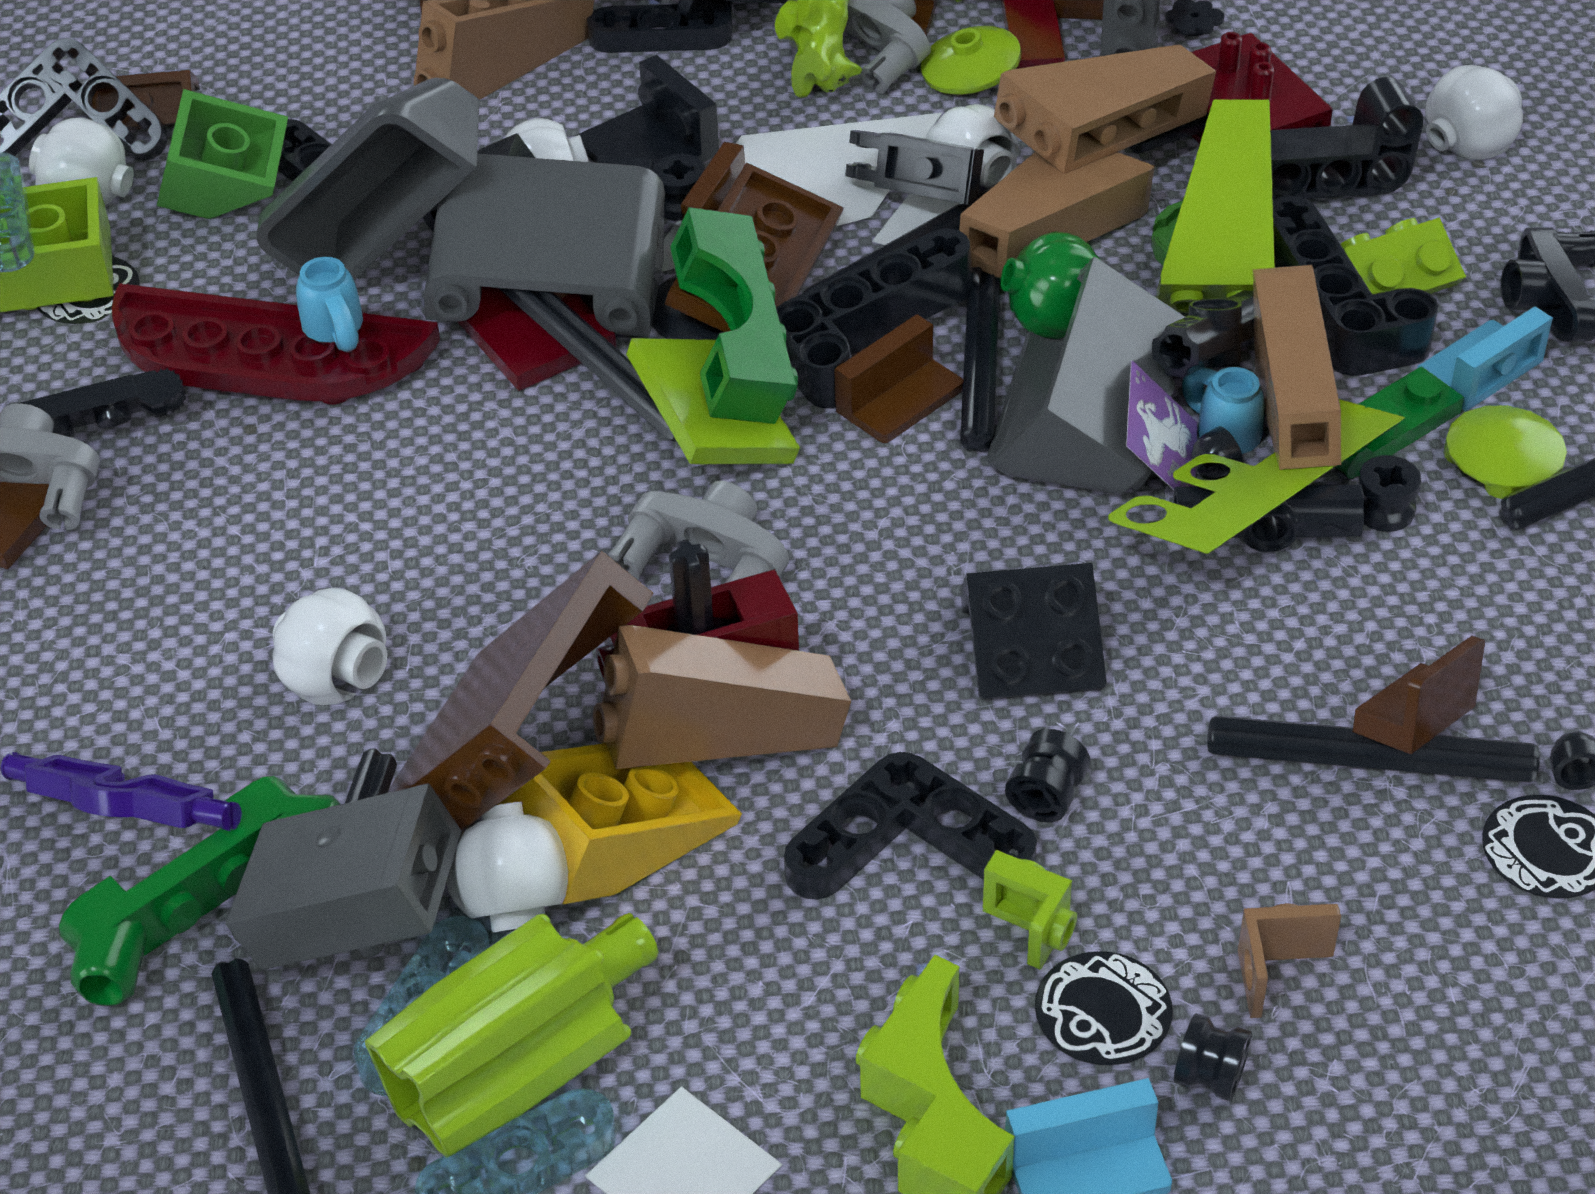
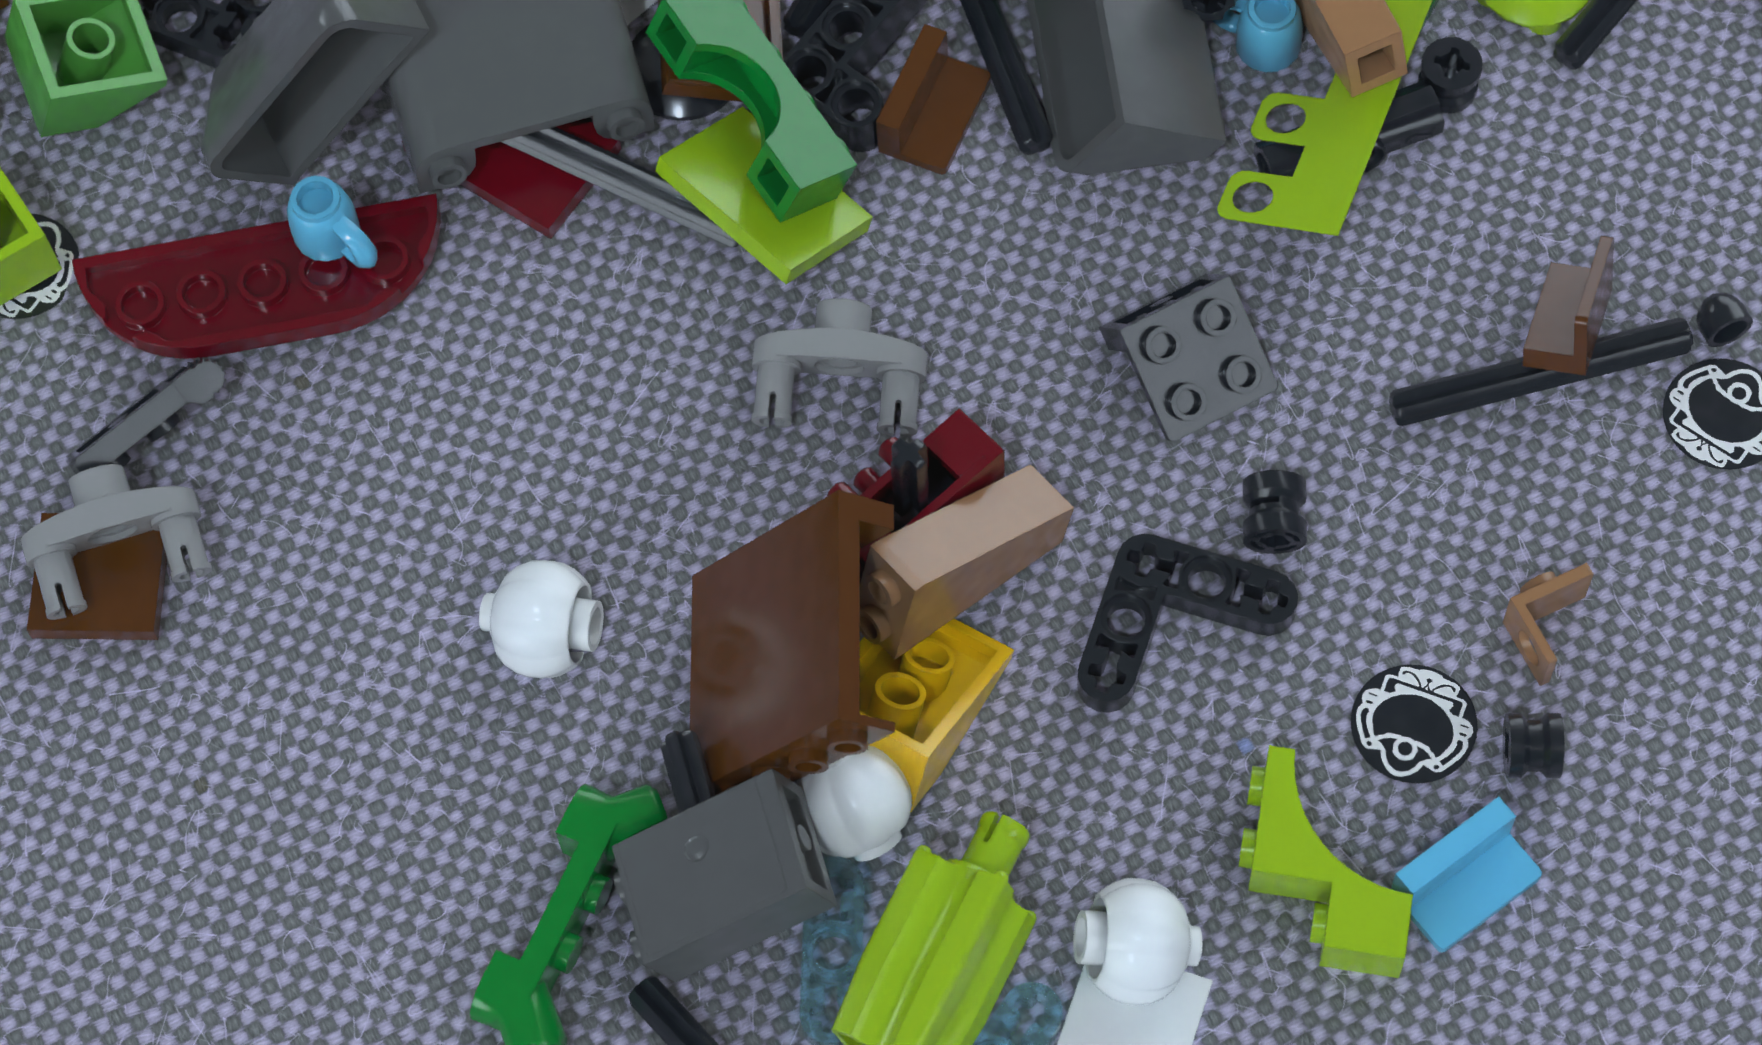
camera: 20 degrees left, 20 degrees up
(104, 792) = (471, 855): dark purple piece -> none
(717, 1090) = (1136, 941): none -> white plant
(1031, 899) = (1313, 644): lime bracket -> none
(1158, 428) = (1219, 85): sticker -> none
(1217, 442) = (1273, 77): black hinge -> none

